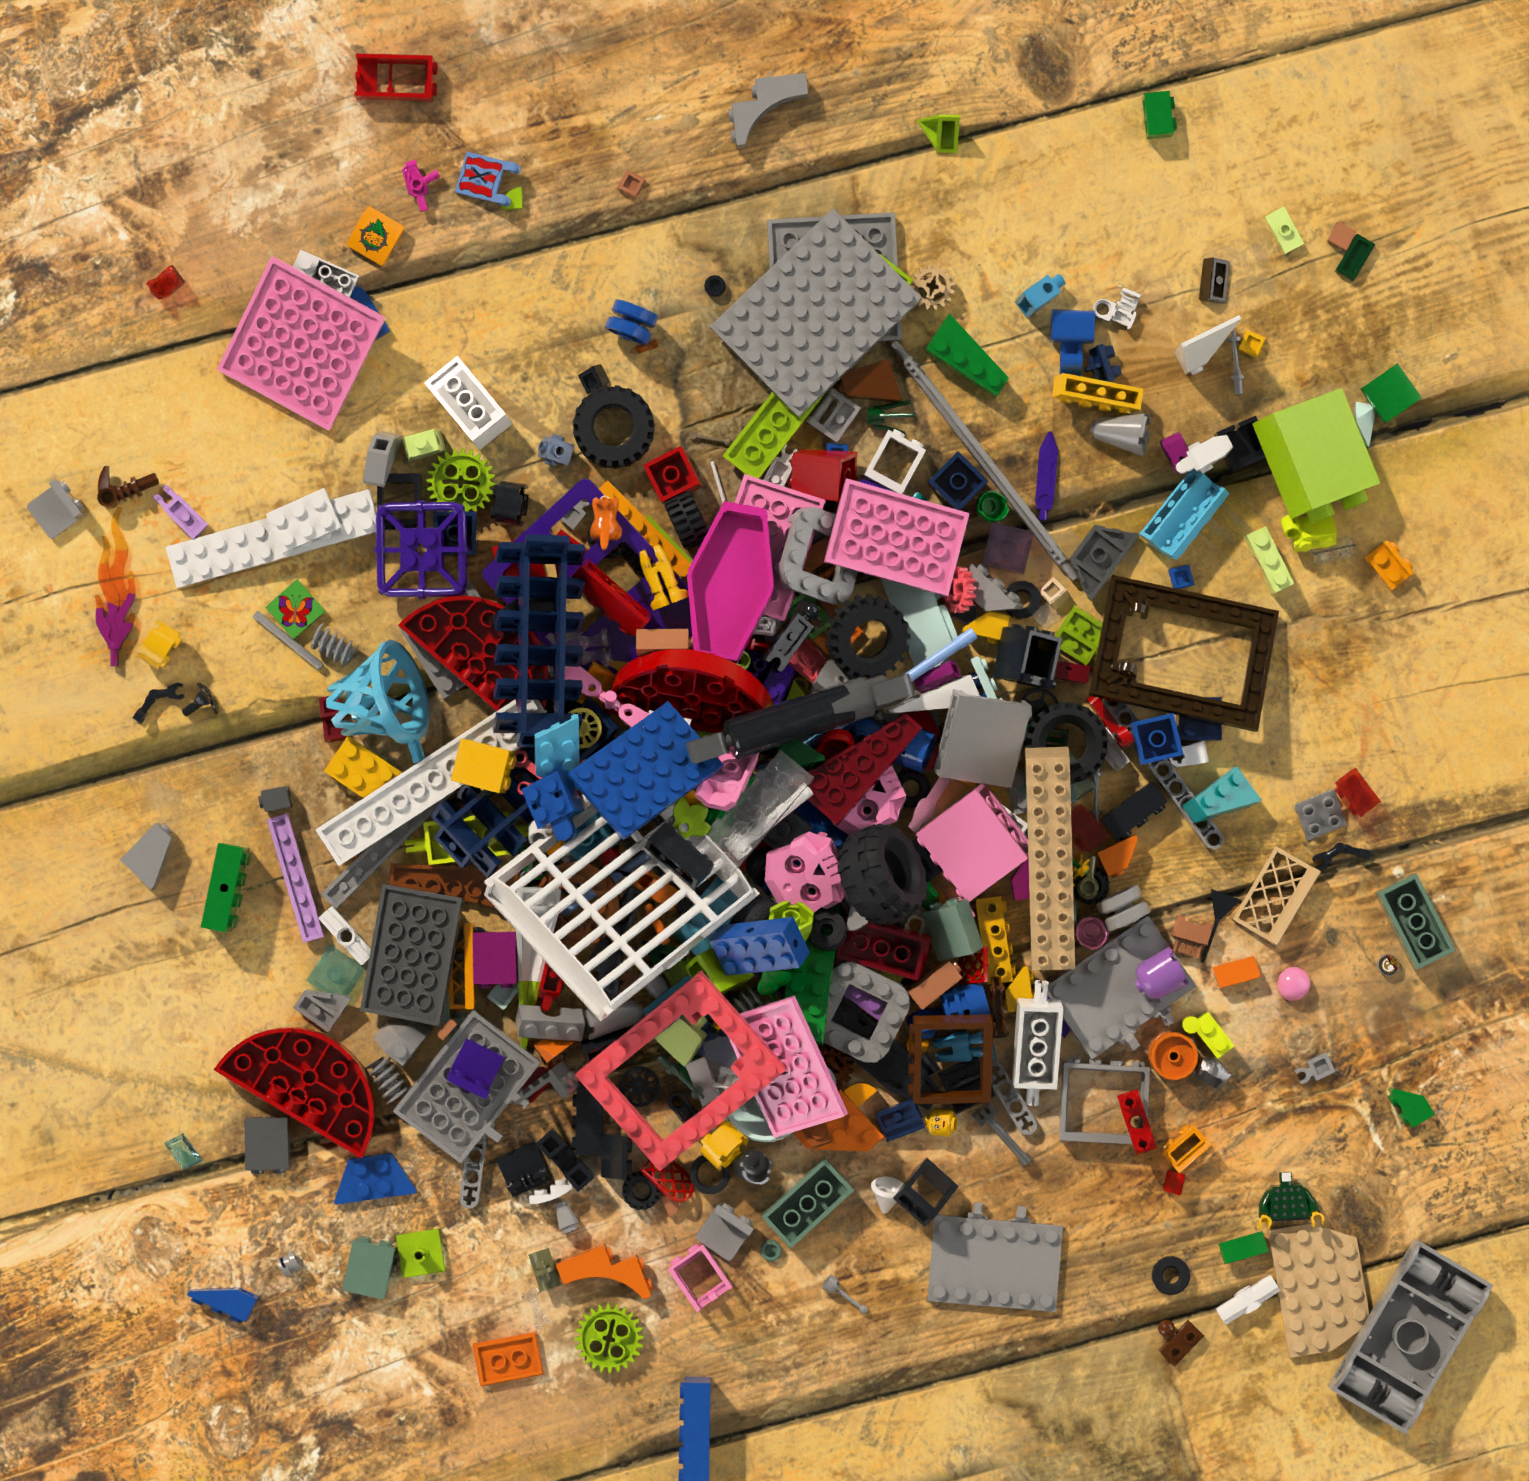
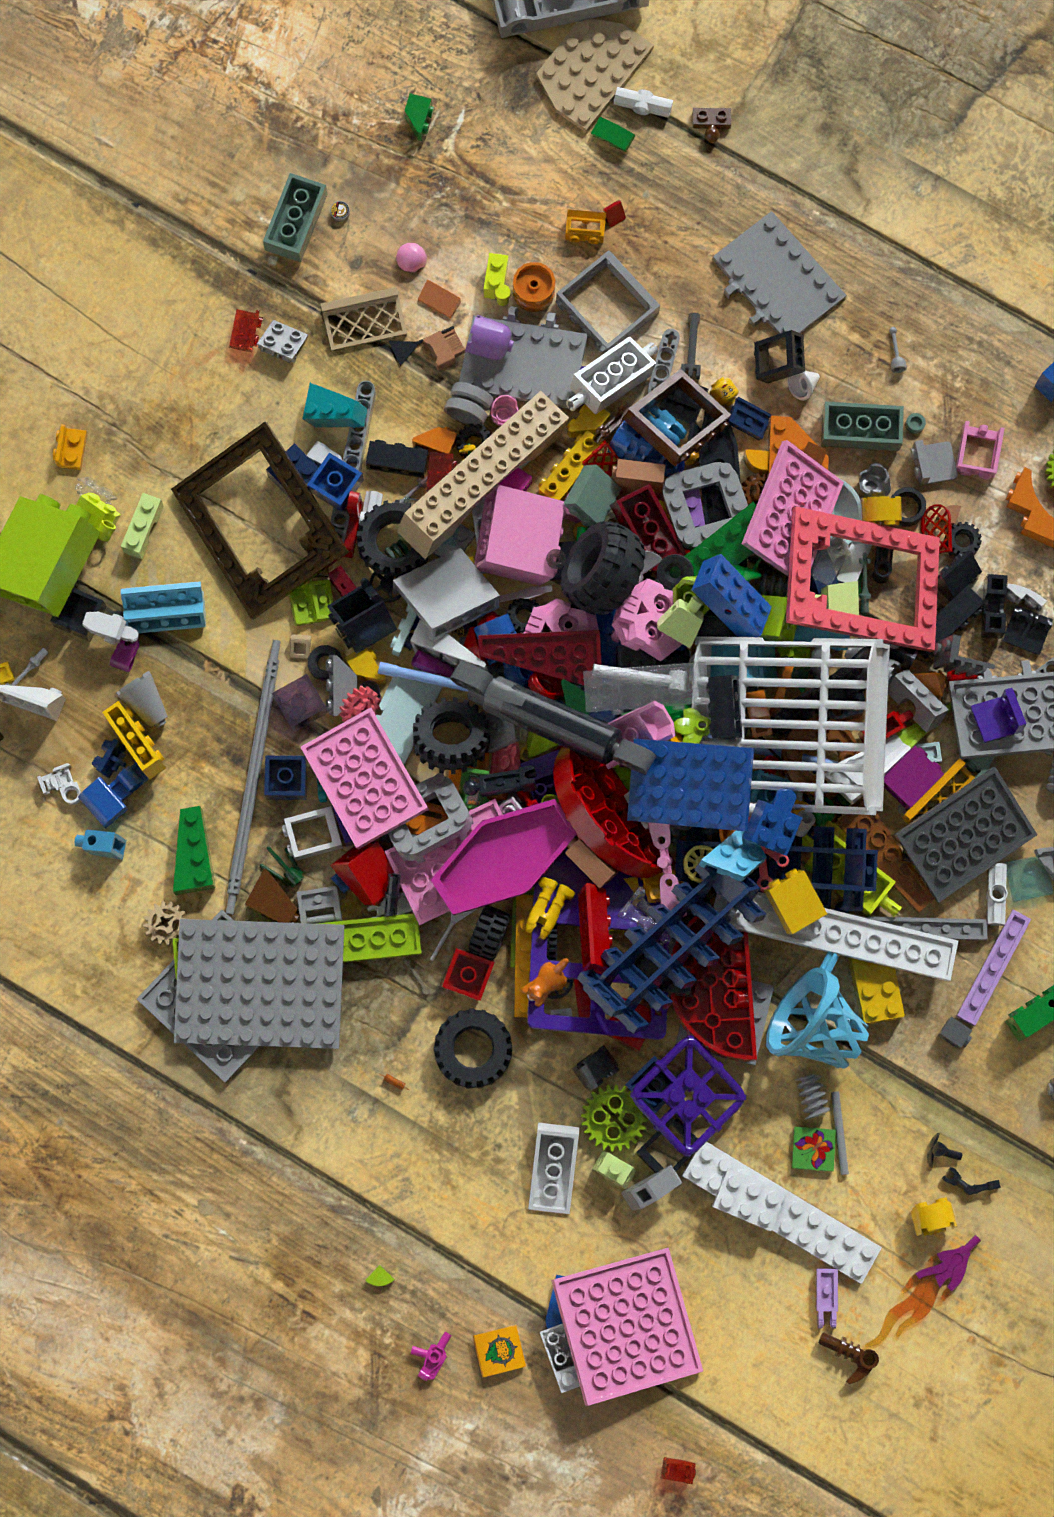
camera: 135 degrees left, 10 degrees down
(56, 509) = (912, 1389): light grey bracket -> none
(331, 733) = (867, 1048): dark red slope -> none
(367, 76) = (391, 1470): red door -> none
(402, 1038) = (1029, 788): light grey slope -> none
(447, 1029) = (989, 762): nougat tile -> none
(482, 177) = (385, 1314): flag -> none
(555, 450) = (528, 1072): sand blue brick -> none
(566, 1219) = (1030, 571): light grey cone -> none
(594, 378) = (452, 1097): black slope -> none
(631, 184) = (289, 1203): nougat tile -> none
(631, 322) = (390, 1104): blue wheel -> none
(640, 1086) = (897, 606): black wheel -> none
(714, 286) = (306, 1075): black tile -> none
(769, 94) = (134, 1167): light grey arch -> none
(779, 890) = (682, 621): none -> yellowish green torso
(786, 475) = (392, 894): none -> black pin
(921, 849) = (560, 556): none -> clear smoke plate
(942, 132) = (47, 1020): lime slope -> none
(992, 506) = (280, 739): green hair -> none
(1046, 476) = (224, 725): dark purple piece -> none
(1046, 616) = (321, 635): clear plate -> none
(1088, 886) = (475, 438): olive plate -> none
(1099, 556) = (246, 638): dark grey wing -> none
(1142, 1137) = (606, 255): red piece -> none
(1159, 1268) = (675, 174): black tyre -> none
(1181, 577) = (208, 573): blue tile -> none
(1211, 1072) = (519, 252): flat silver hair -> none
(1288, 1203) = (556, 132): dark green torso -> none
(1317, 1067) = (450, 193): light grey plate -> none
(1338, 848) = (294, 309): black piece -> none

